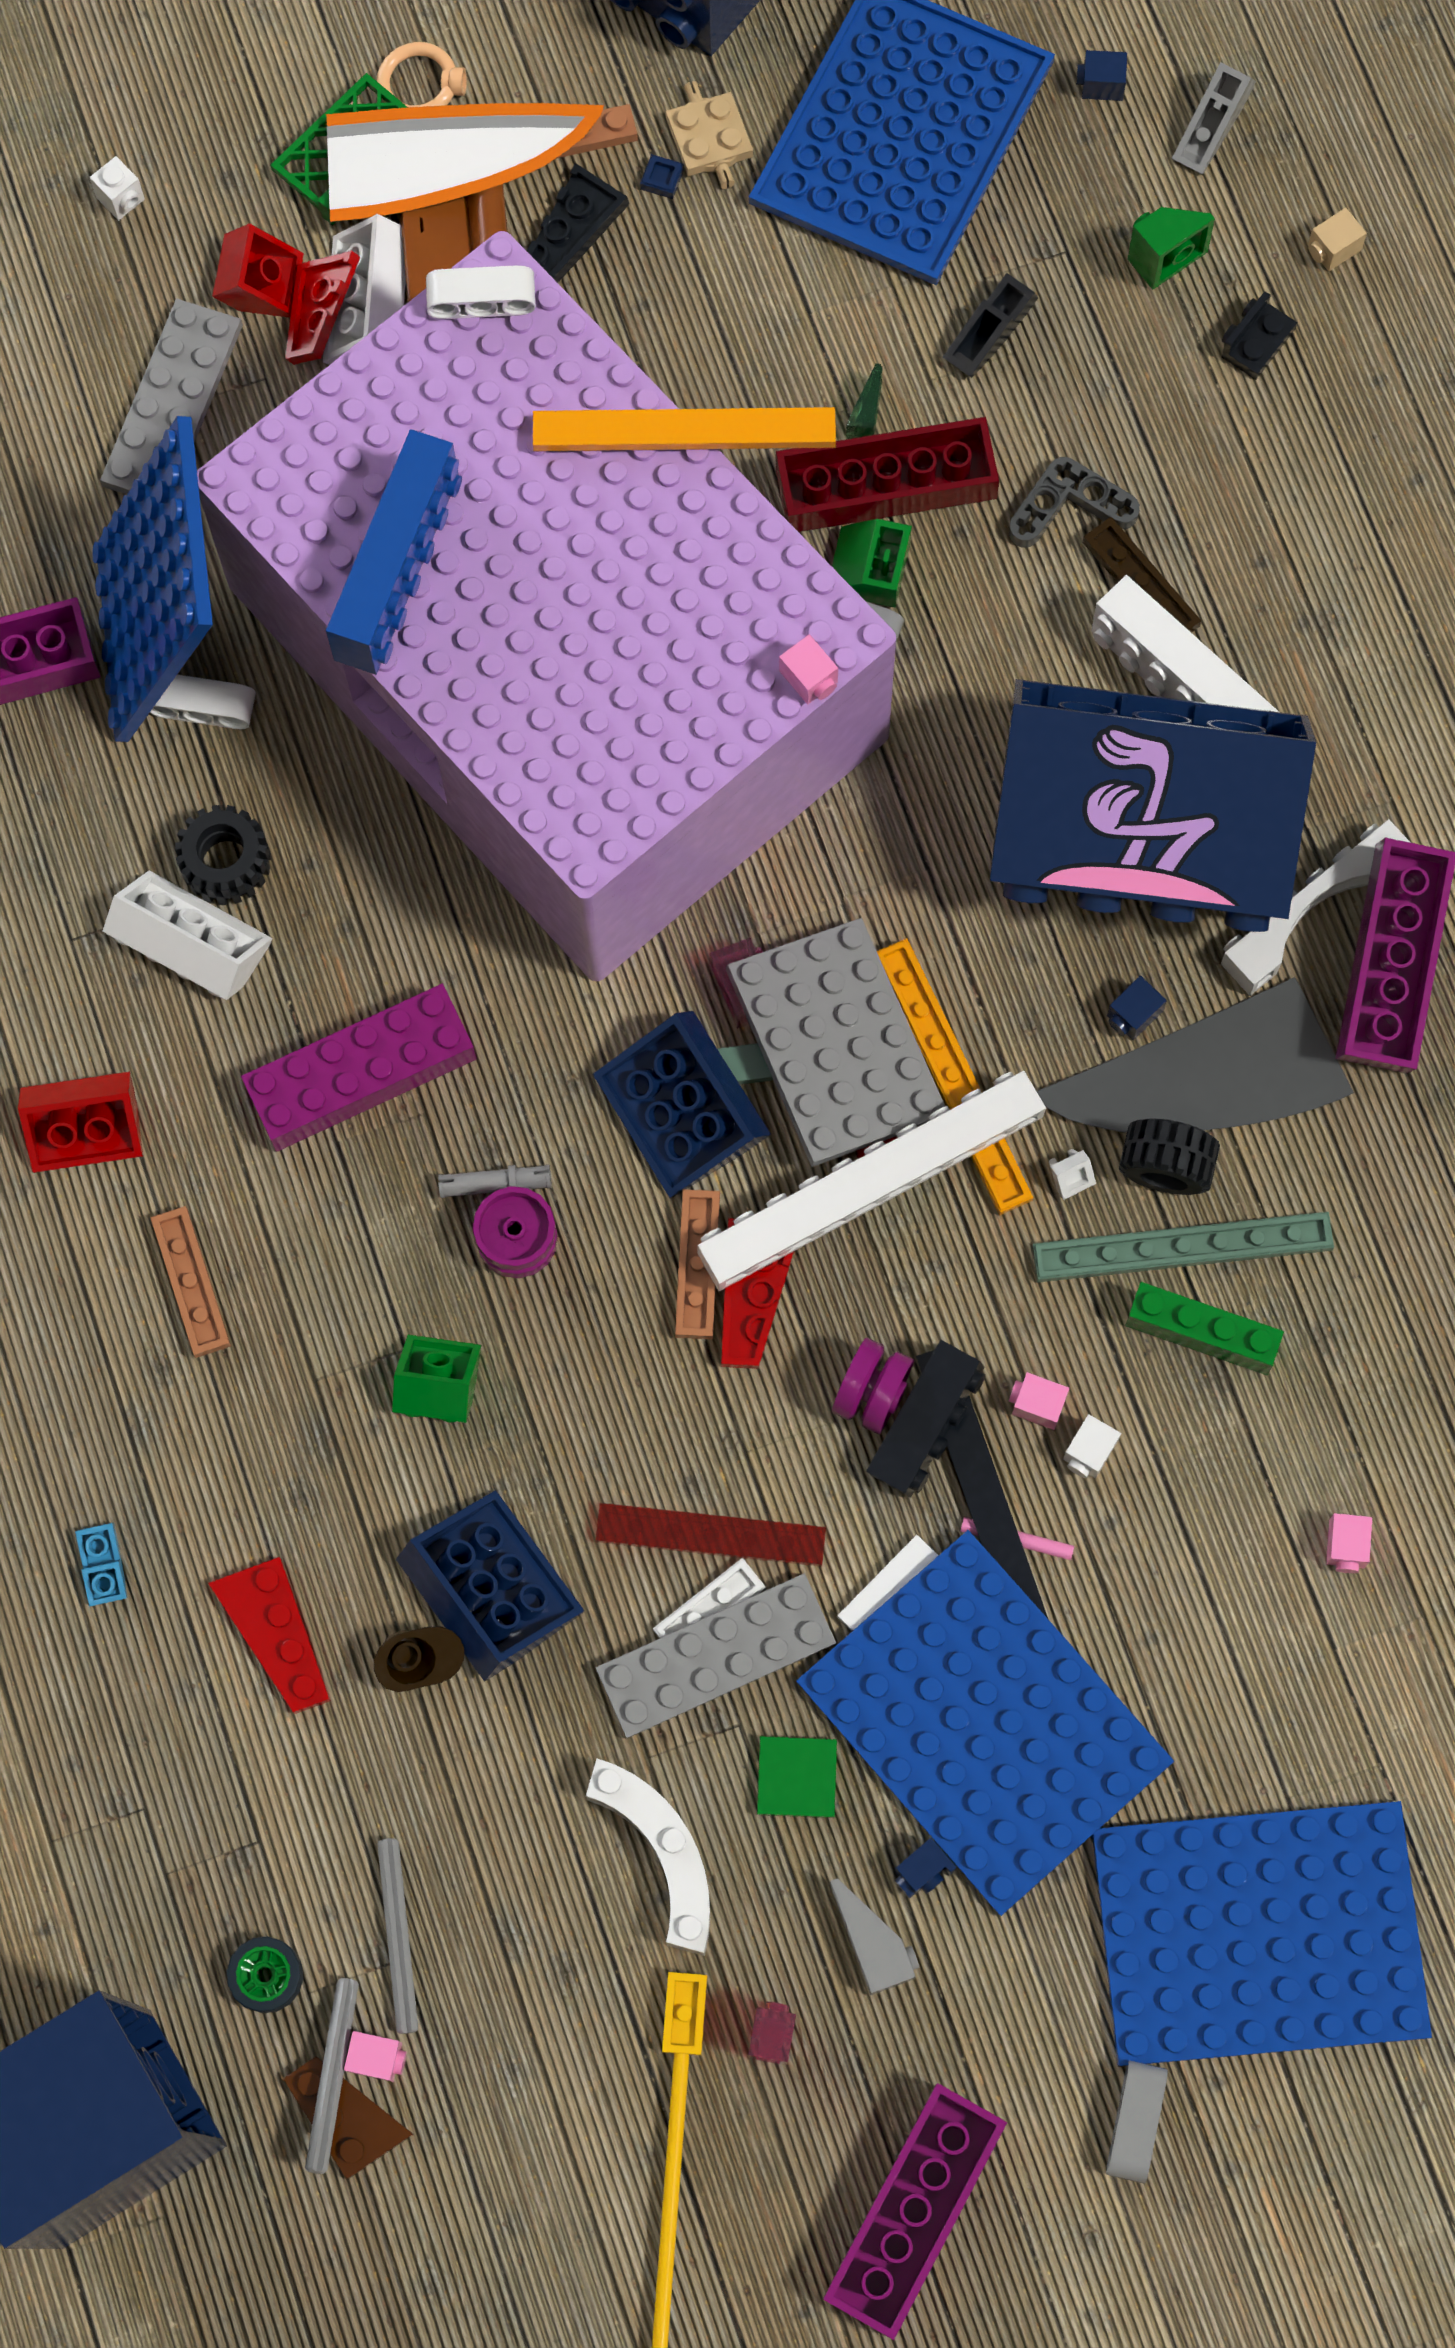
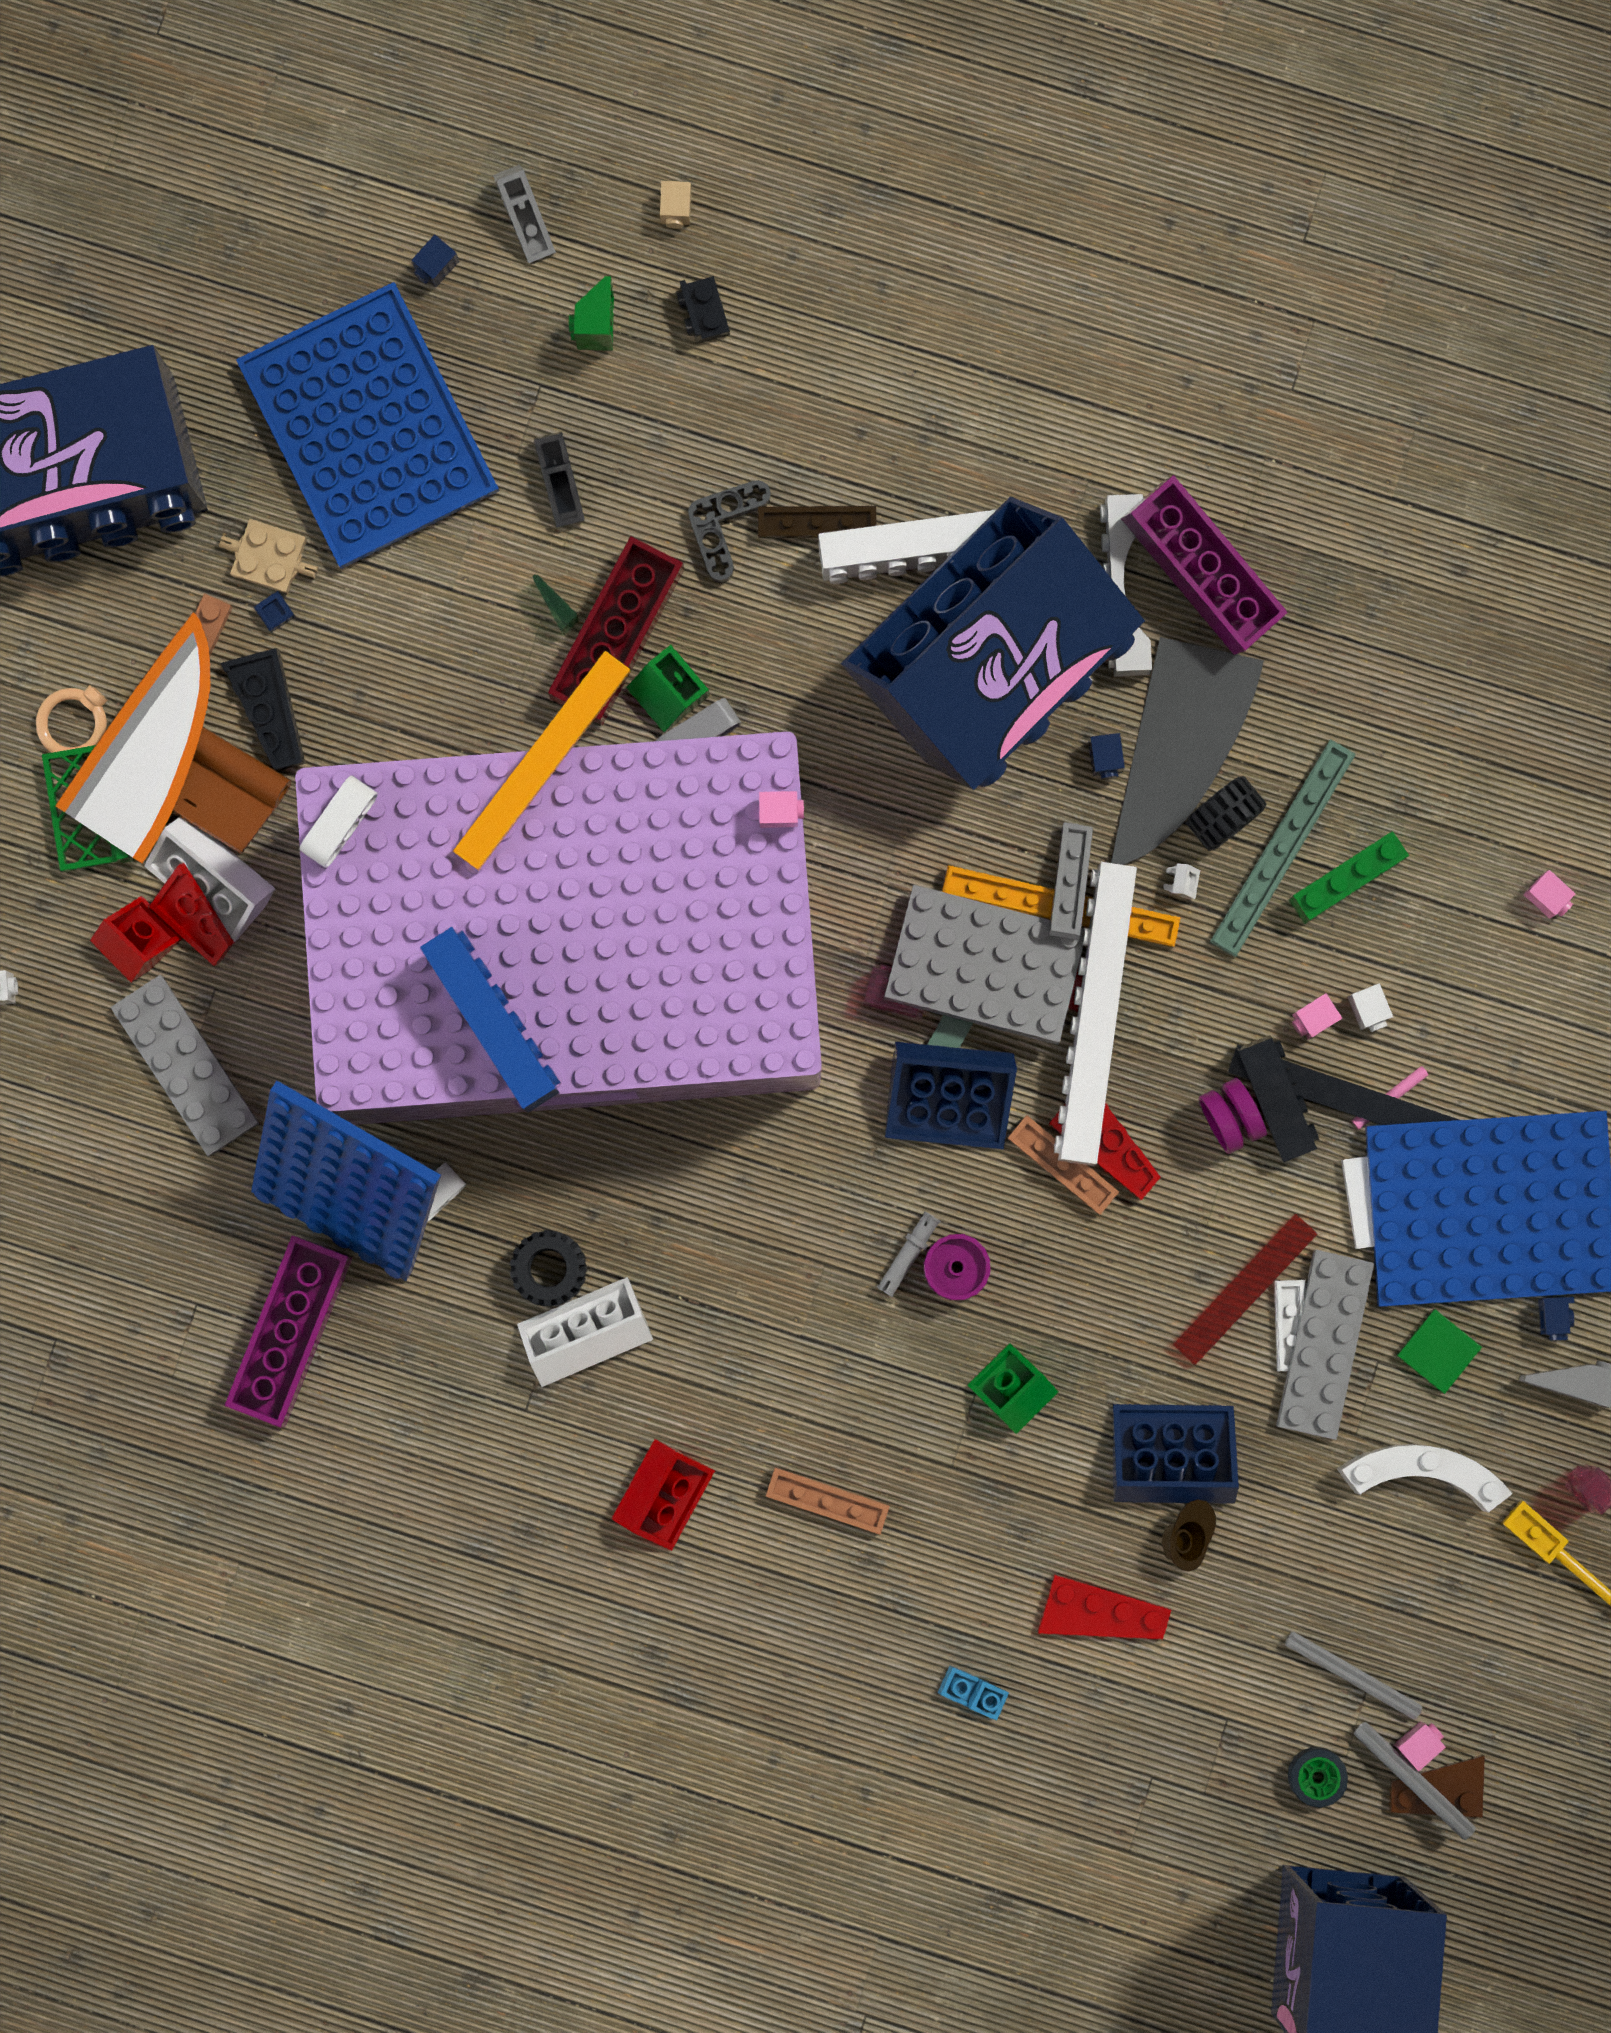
camera: 55 degrees left, 10 degrees up
(359, 1067) = (765, 1286): magenta brick -> none
(983, 1061) = (1071, 881): none -> light grey plate

